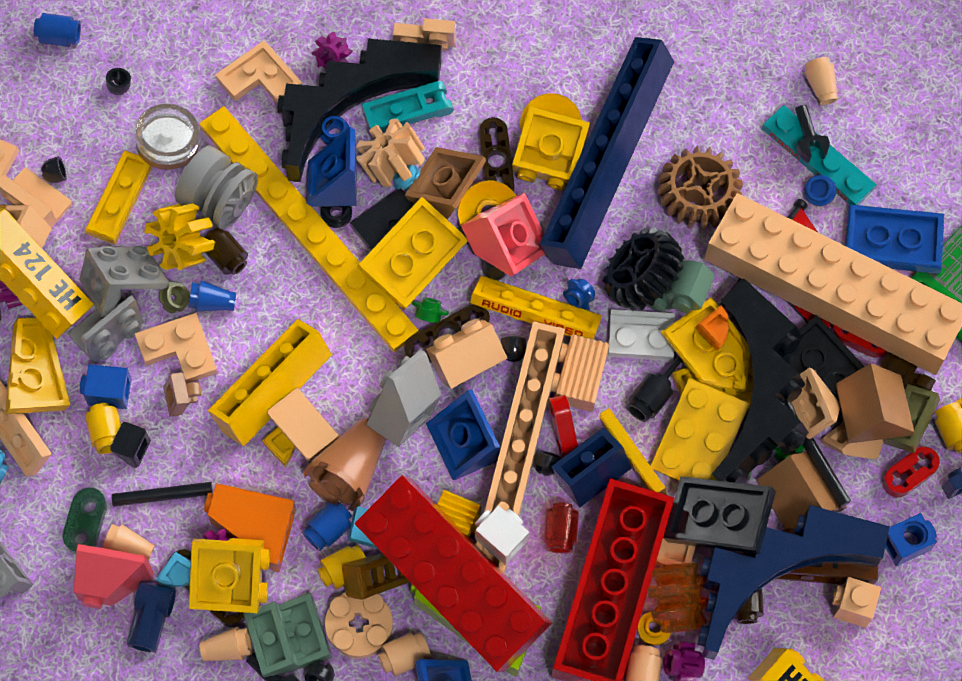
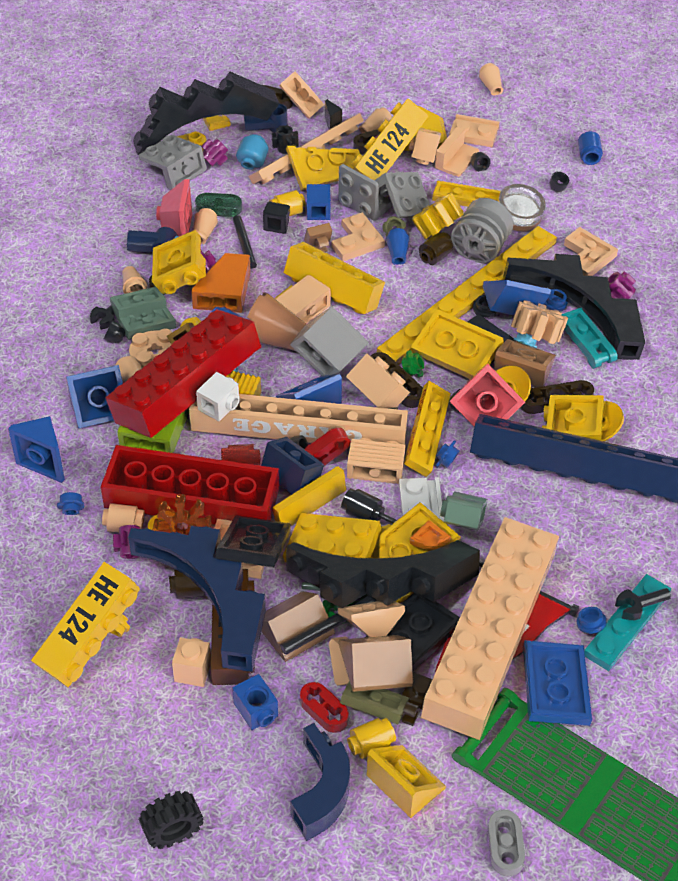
camera: 85 degrees right, 20 degrees down
(431, 32) = (652, 332): light nougat plate -> none
(643, 269) = (472, 481): black gear -> none
(695, 165) = (570, 521): medium nougat gear -> none

